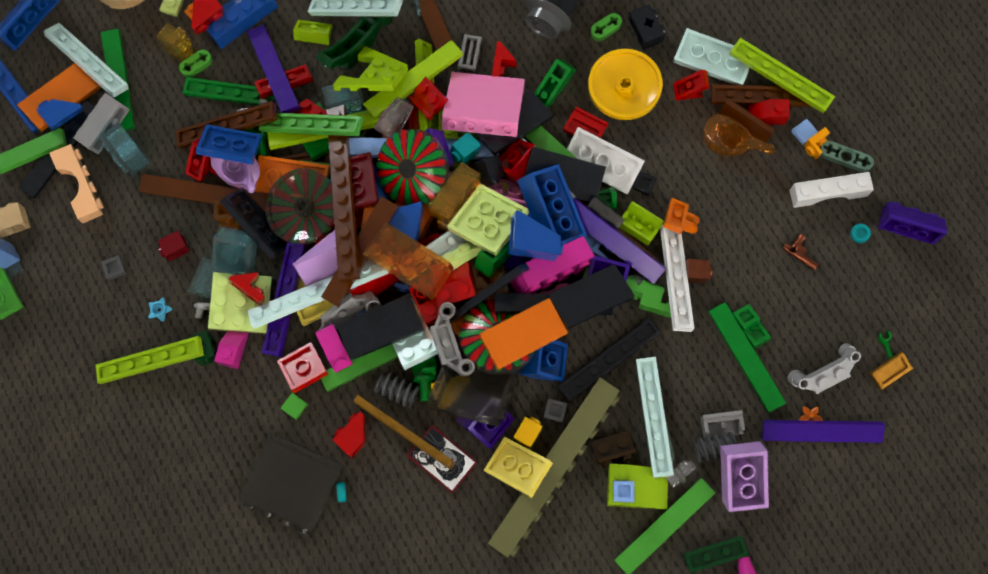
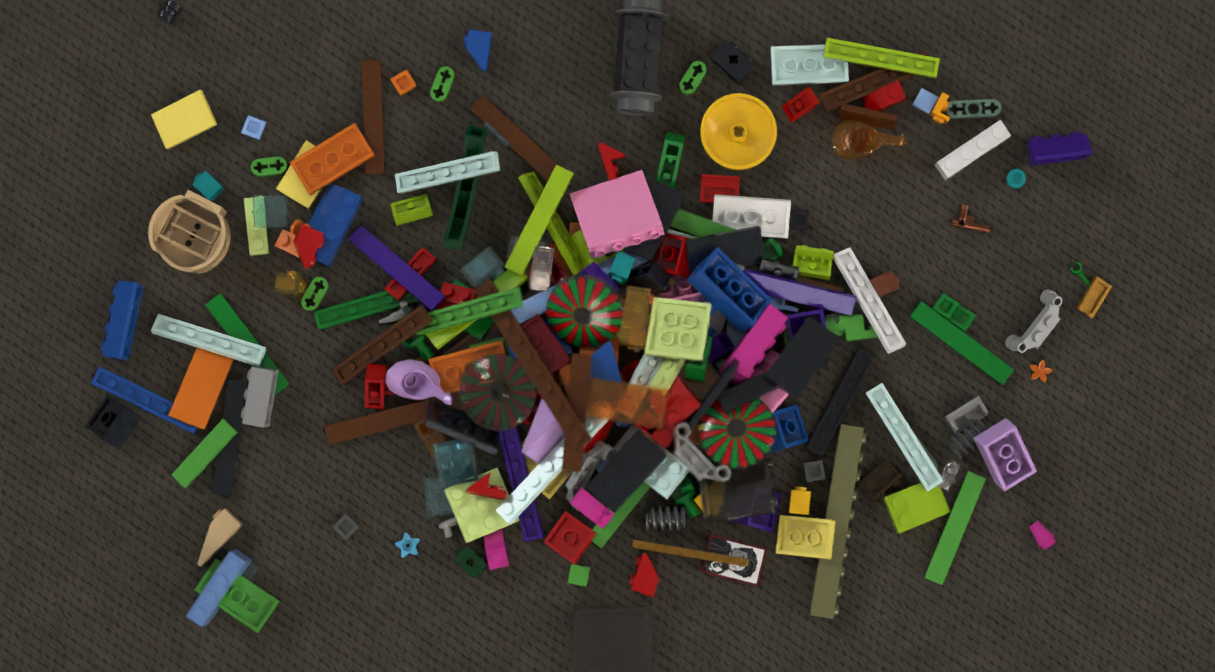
camera: 30 degrees left, 10 degrees up
(57, 112) = (214, 407): blue slope -> none
(85, 203) = (288, 480): light nougat arch -> none
(124, 150) = (298, 411): clear light blue brick -> none
(149, 360) = (428, 596): lime tile -> none
(173, 246) = (391, 481): dark red brick -> none
(229, 144) = (400, 364): blue tile -> none
(341, 492) = (659, 629): teal tile -> none
(381, 75) = (509, 232): lime wing -> none
(428, 98) = (564, 234): red plate -> none
(467, 66) = (578, 178): light grey tile -> none
(523, 333) = (760, 421): orange tile -> none
(533, 239) = (729, 332): blue slope -> none
(623, 491) = (907, 516): light blue tile -> none
(679, 218) = (846, 241): orange hinge -> none
(715, 554) = (1008, 531): dark green plate -> none
(823, 431) = (1056, 380): dark purple tile -> none

